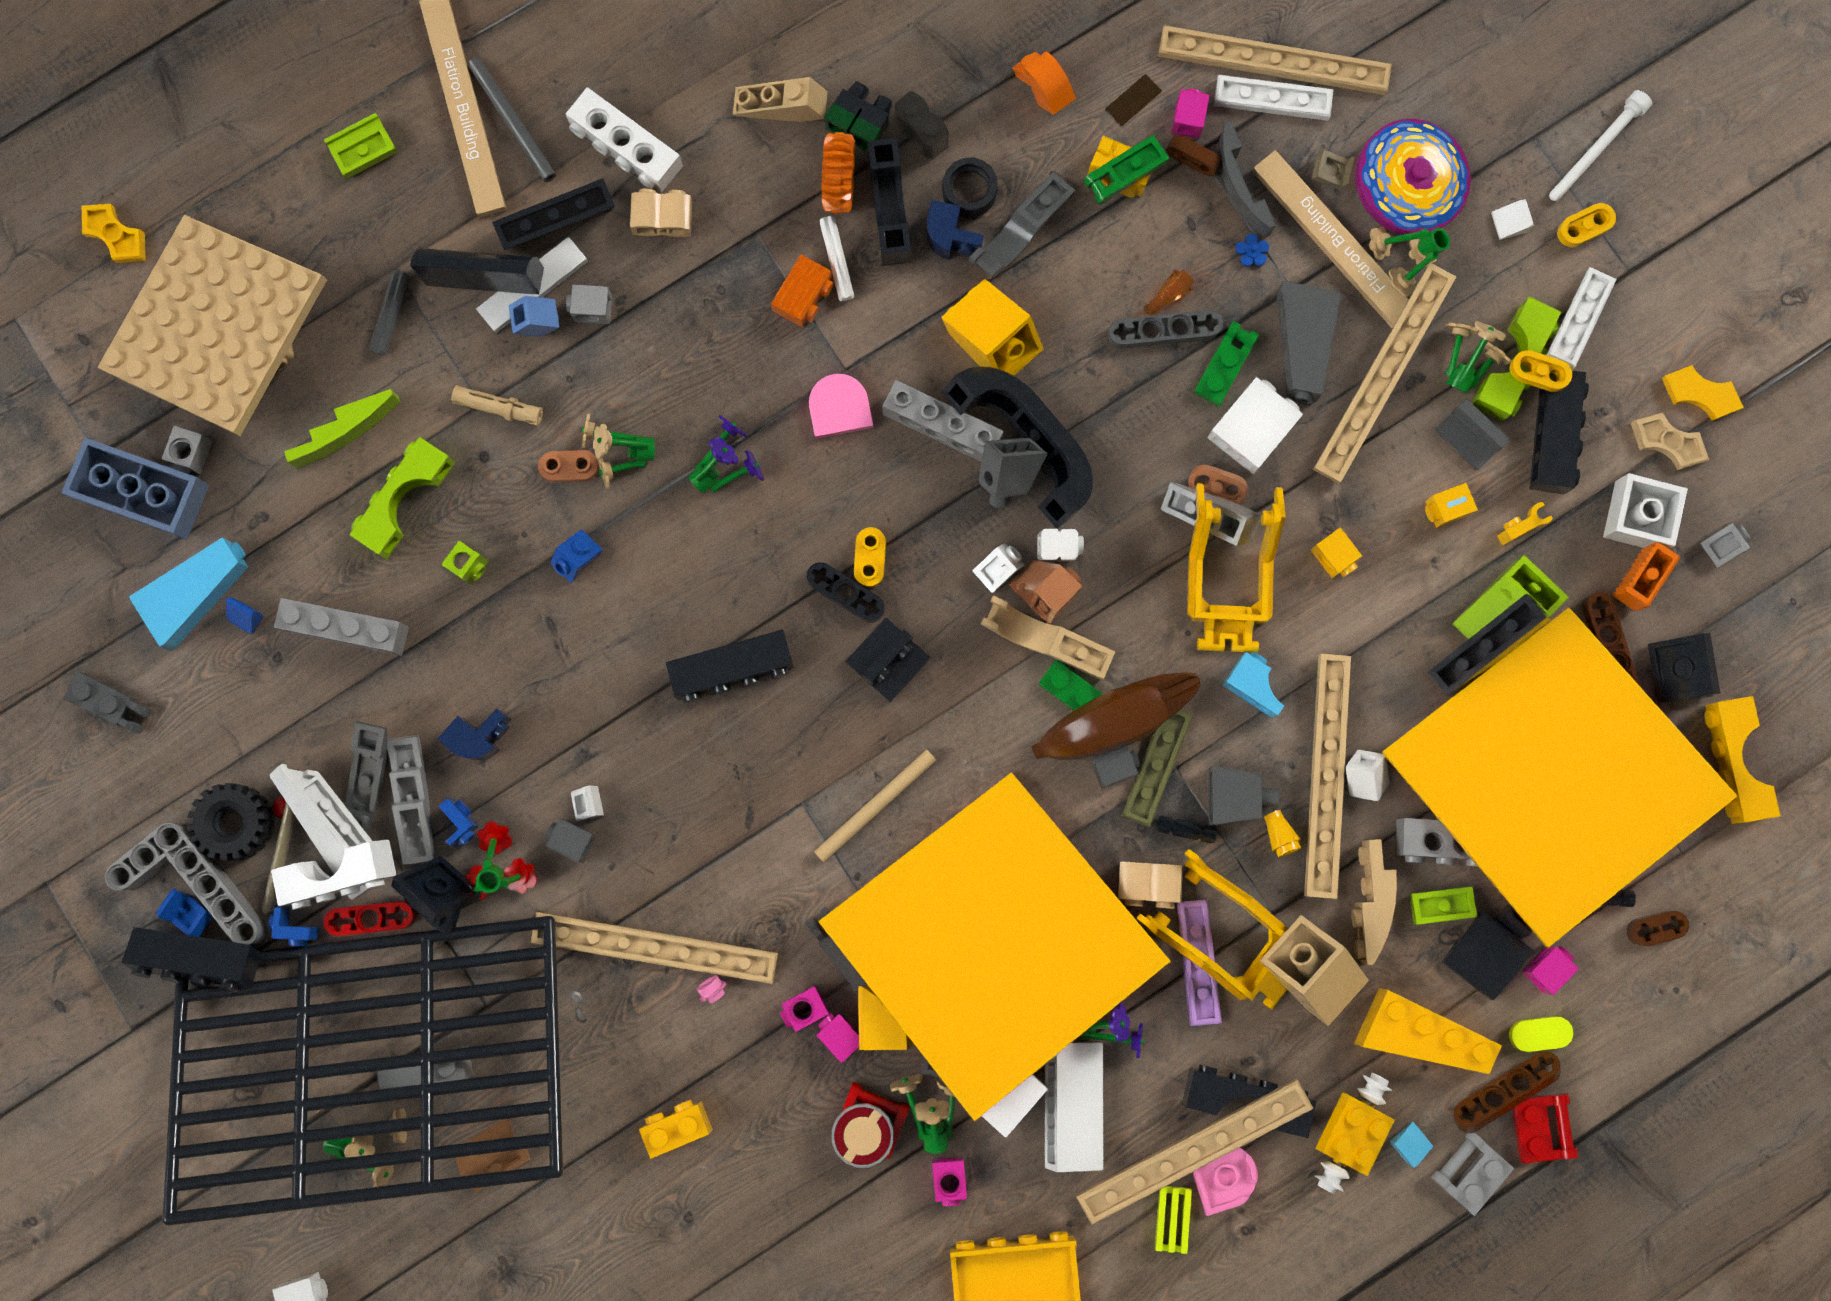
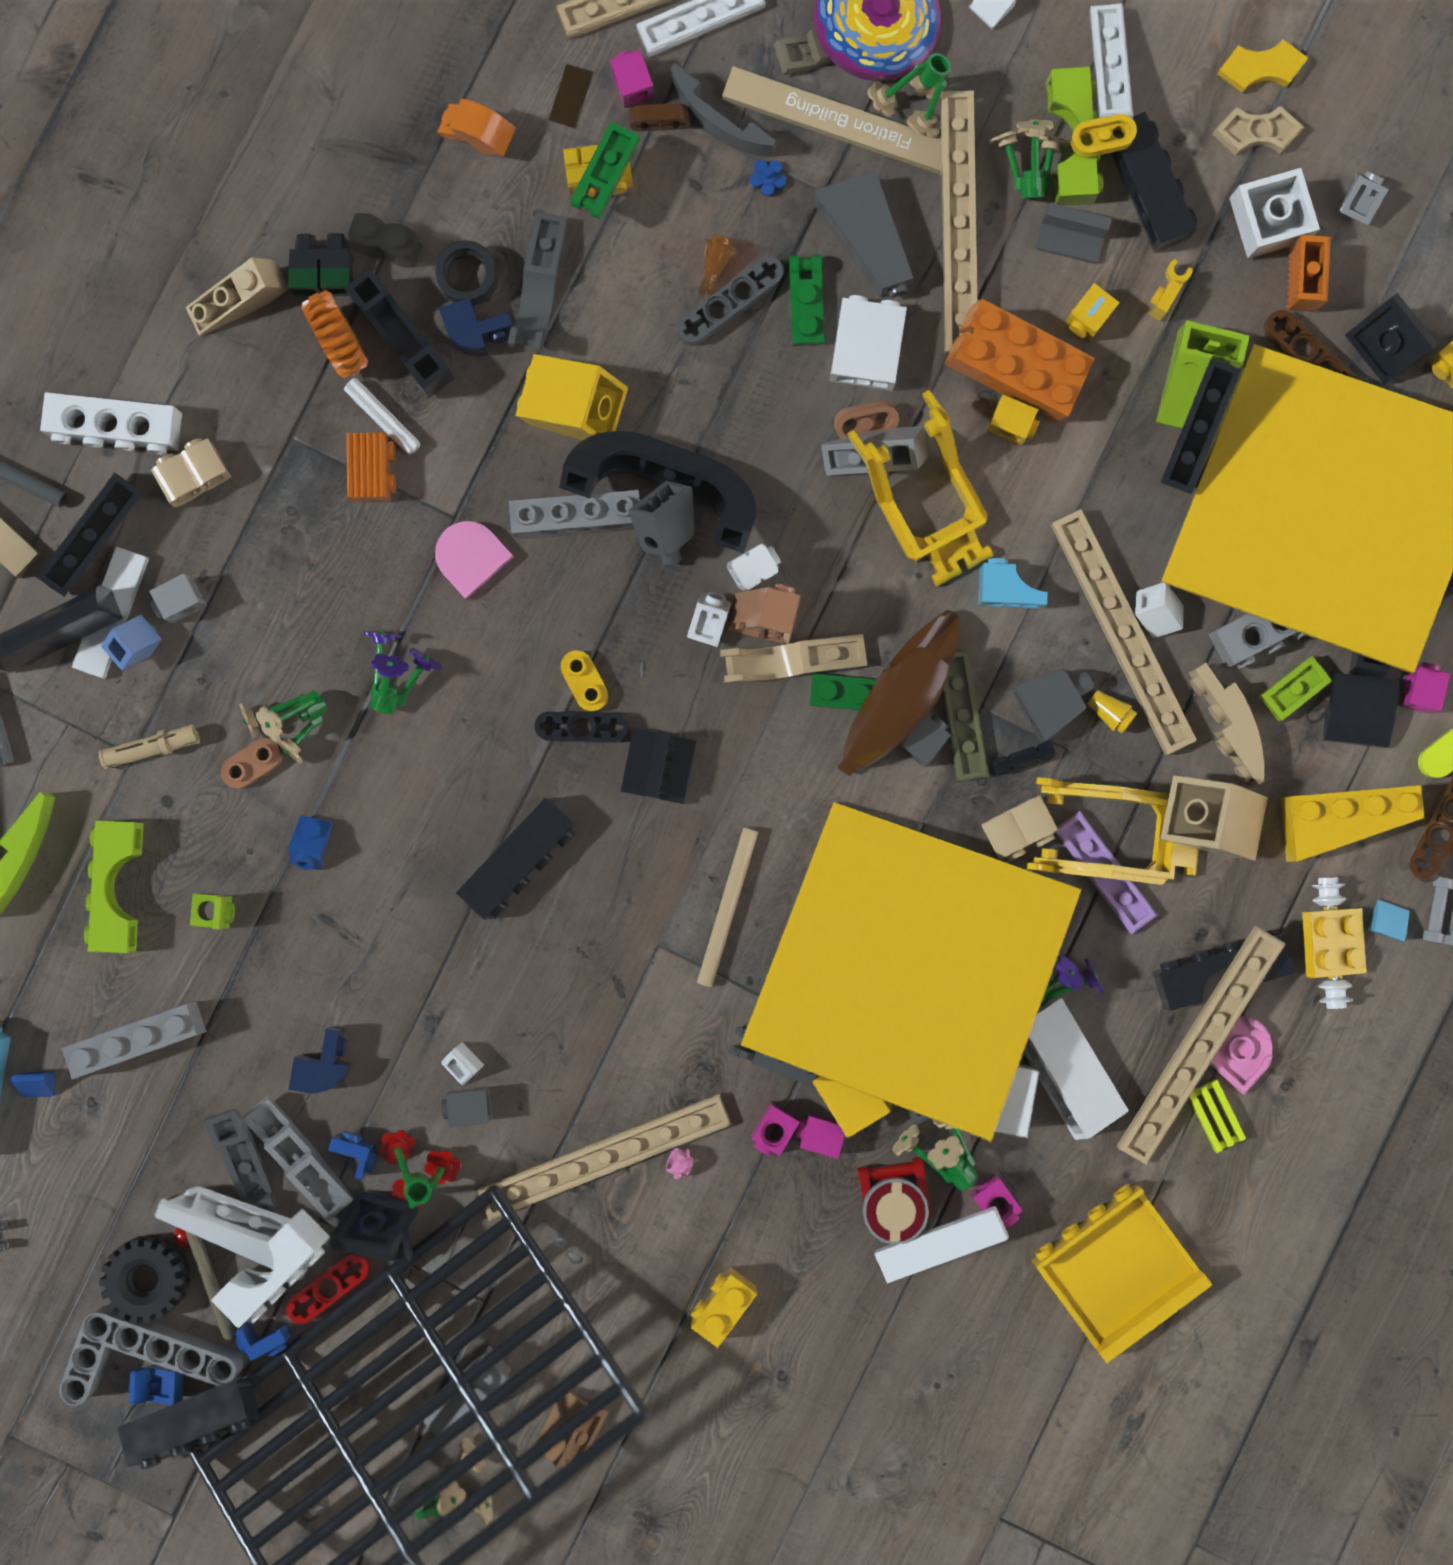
camera: 30 degrees left, 5 degrees up
(884, 1187) = (942, 1244): none -> white tile
(1369, 508) = (1019, 360): none -> orange piece

